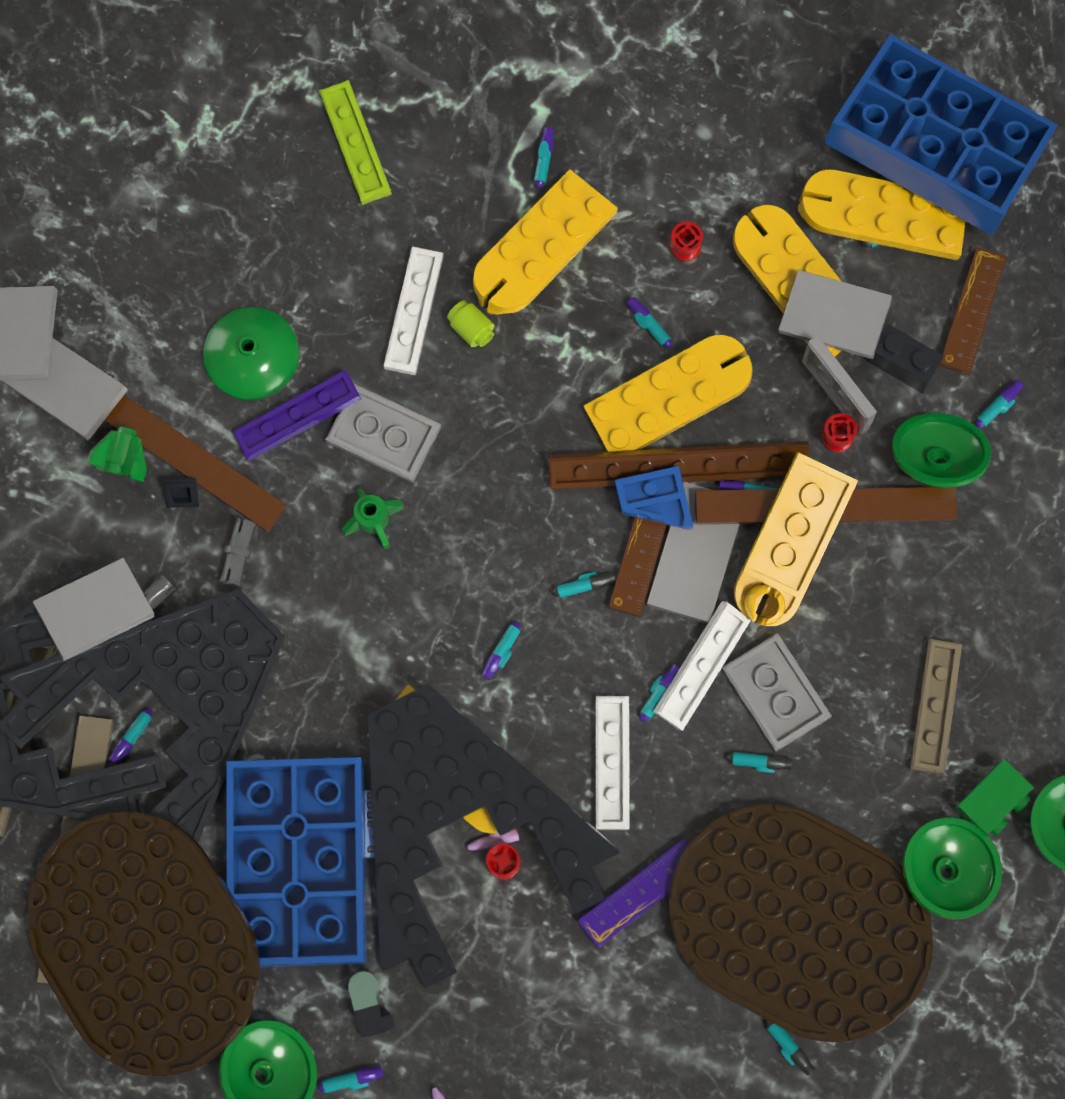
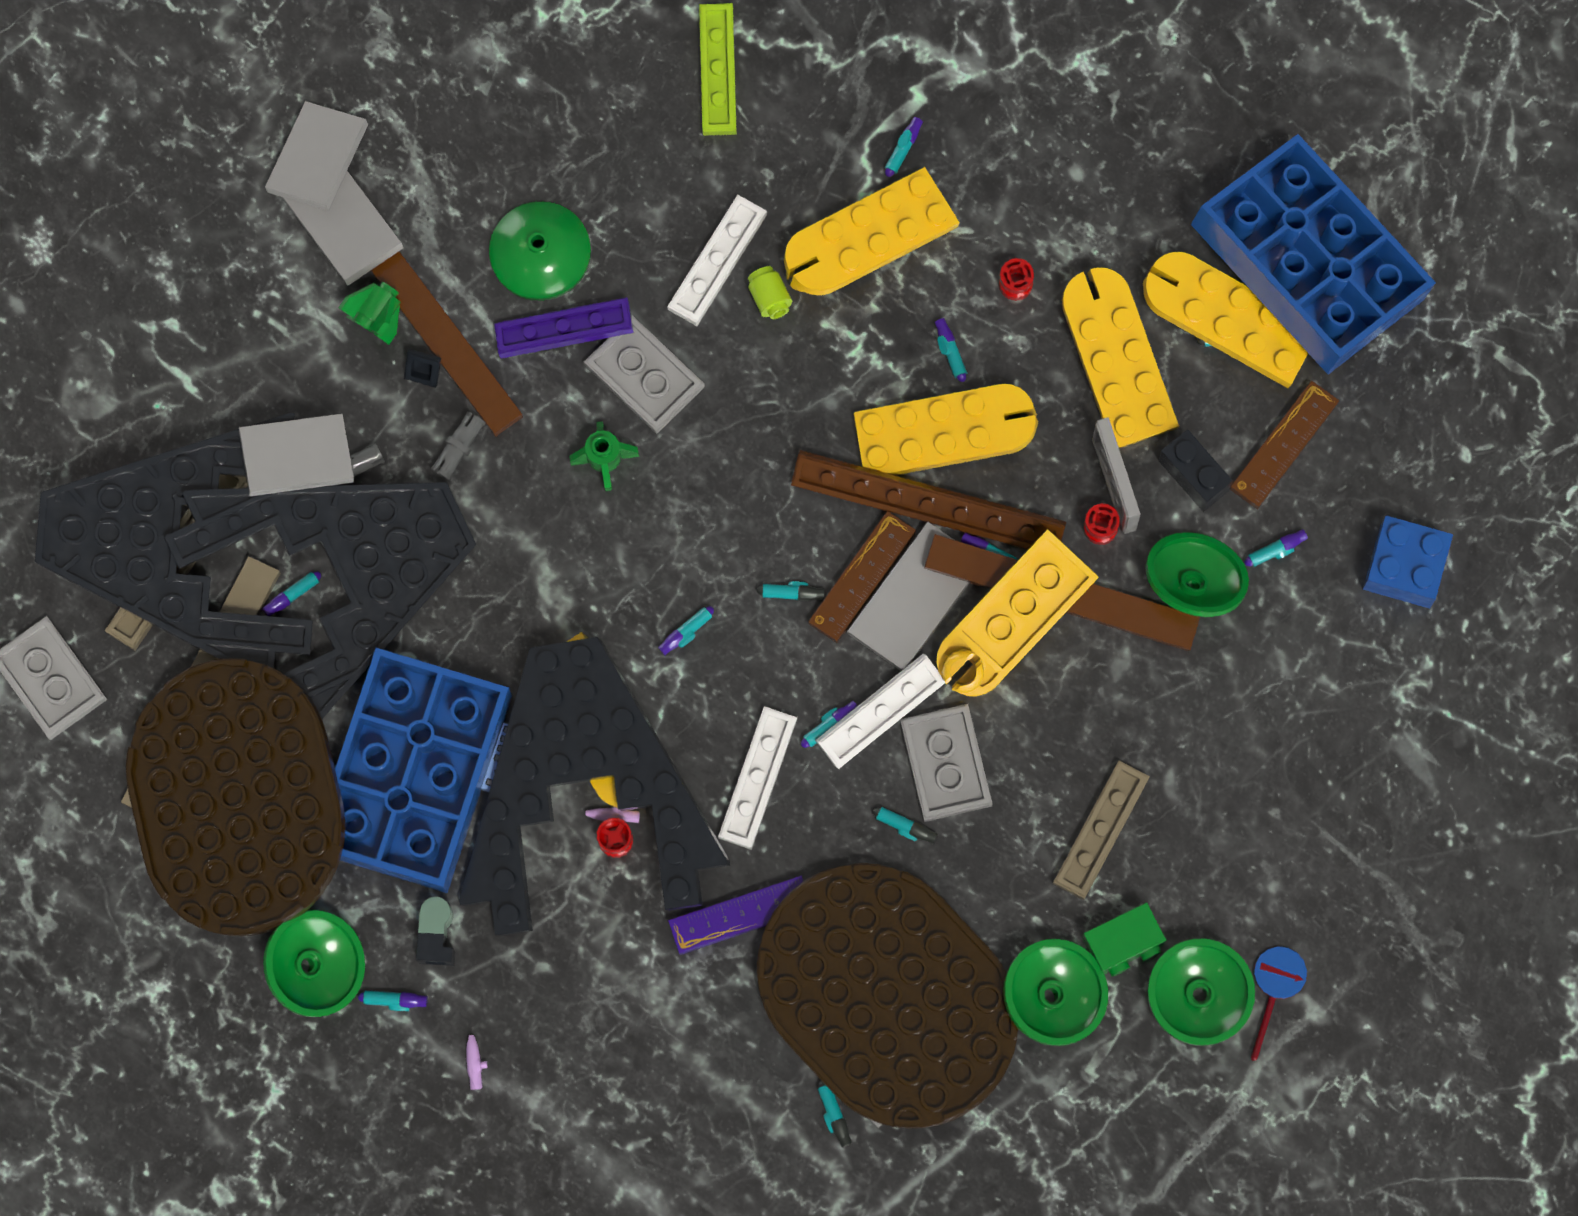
camera: 20 degrees right, 0 degrees up
(655, 498) = (892, 528): blue wing -> none
(837, 312) = (1137, 402): light grey tile -> none

